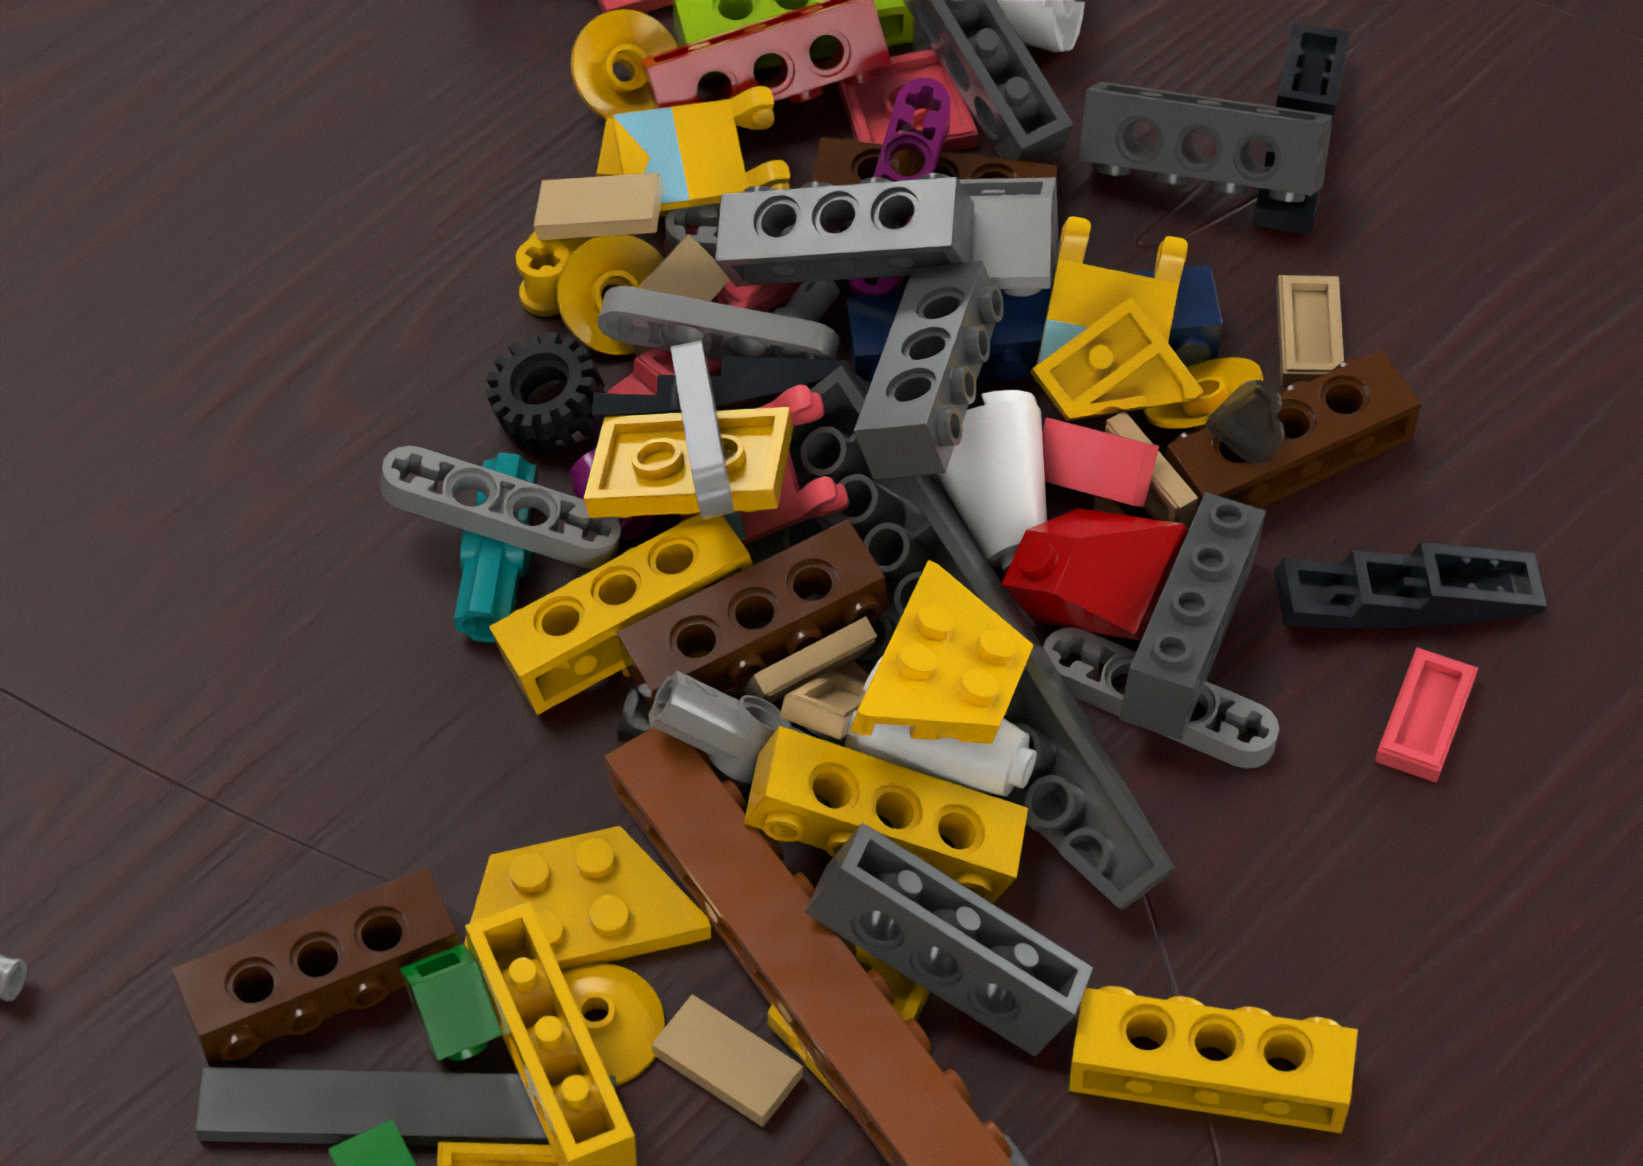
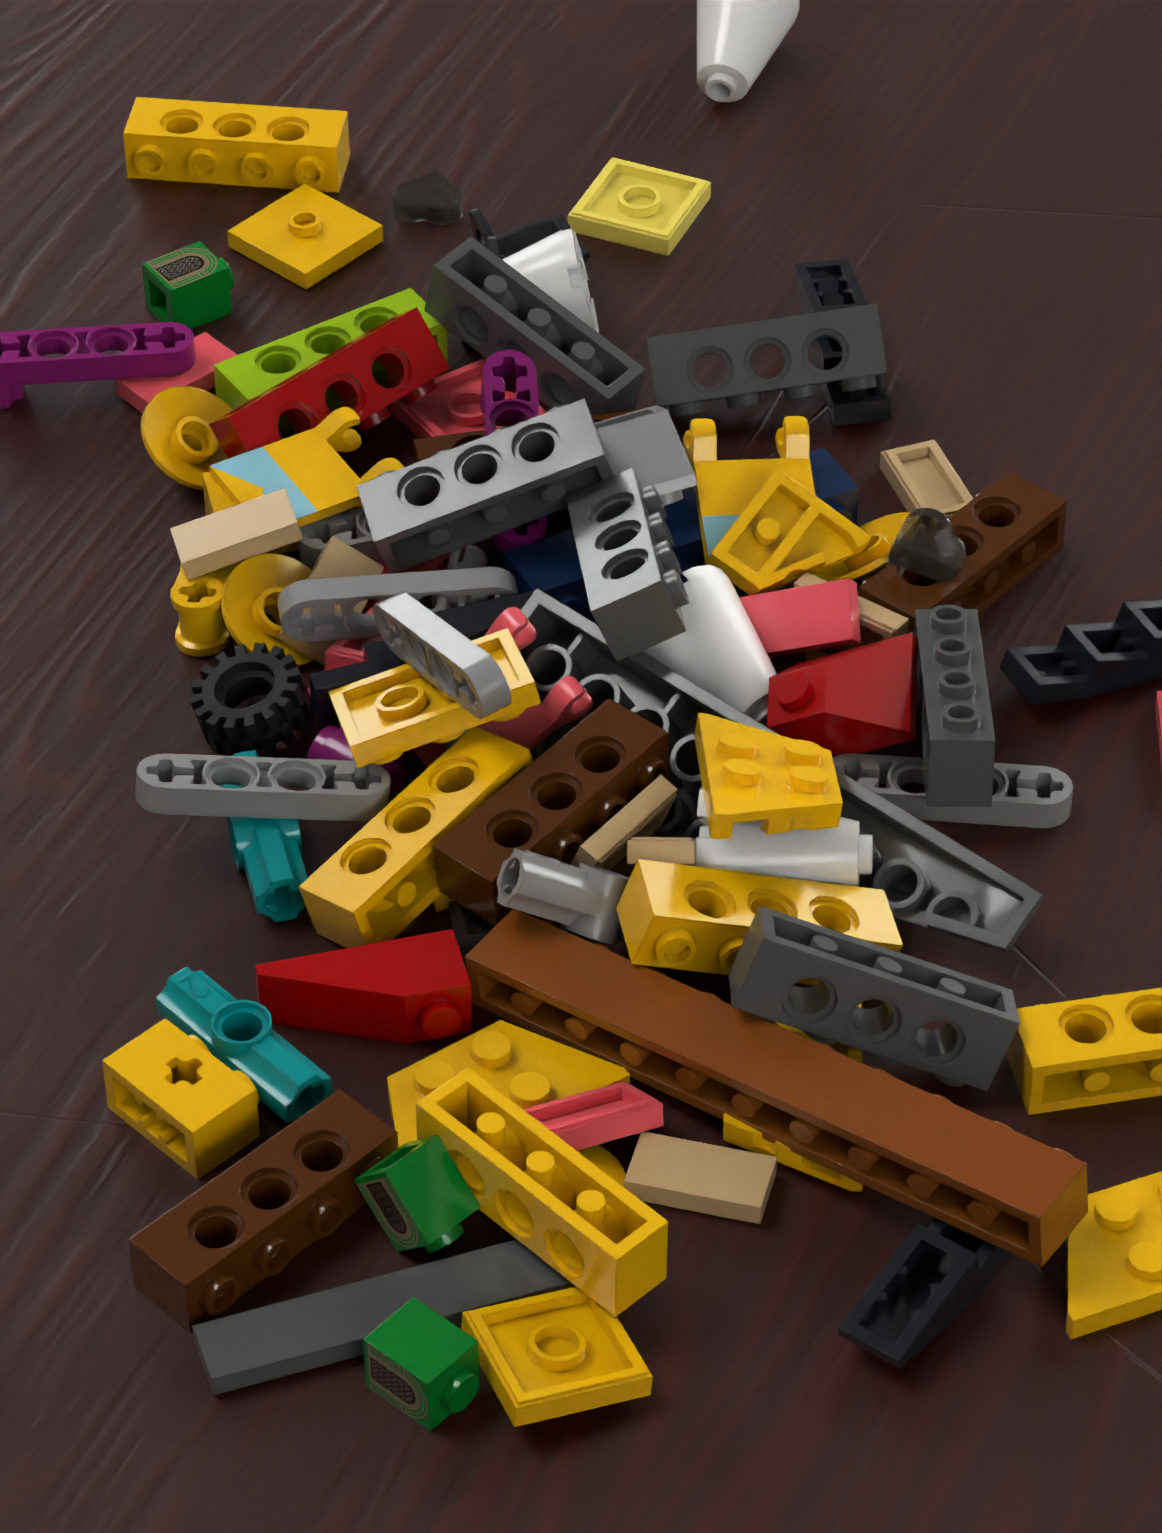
camera: 20 degrees left, 15 degrees down
(303, 850) = (182, 1098): none -> yellow brick
(386, 806) = (244, 1040): none -> teal piece
(532, 760) = (378, 991): none -> red slope
(643, 967) = (600, 1115): none -> coral tile

